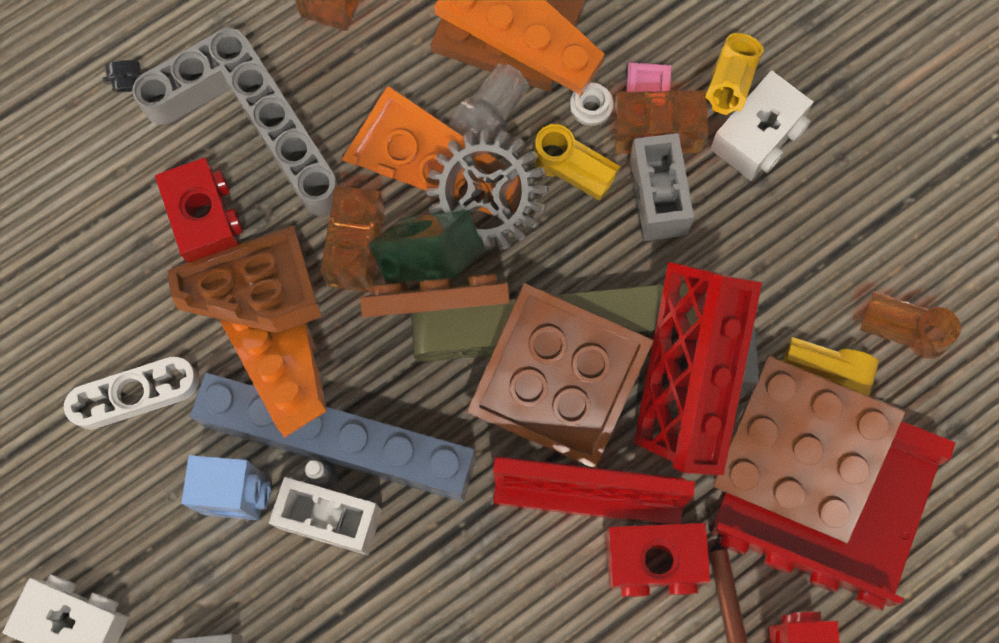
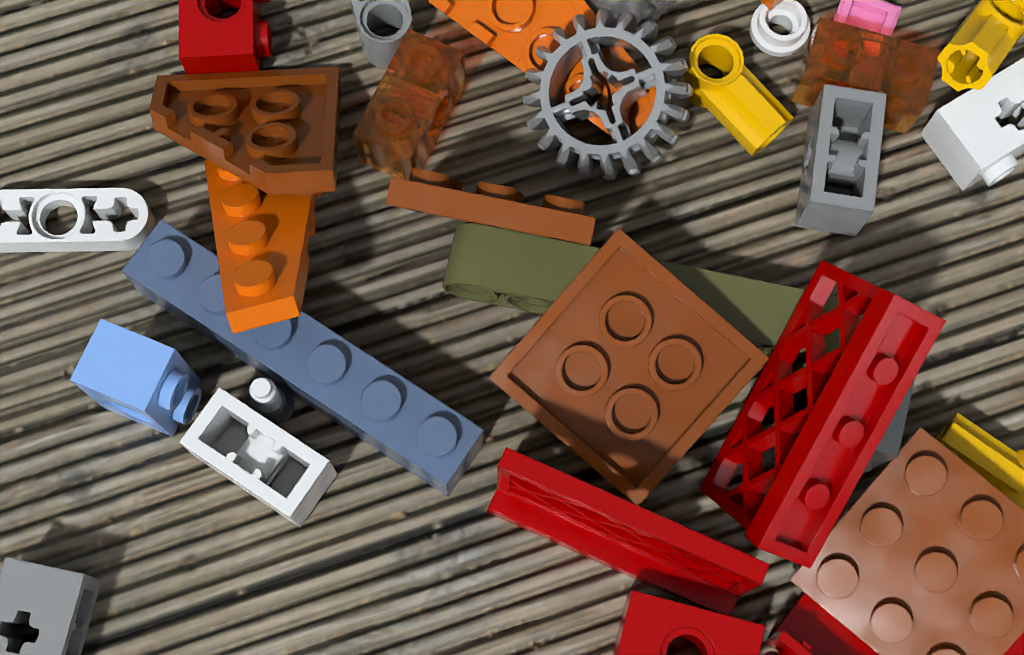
camera: 10 degrees right, 0 degrees up
(427, 247) = (504, 143): clear green brick -> none

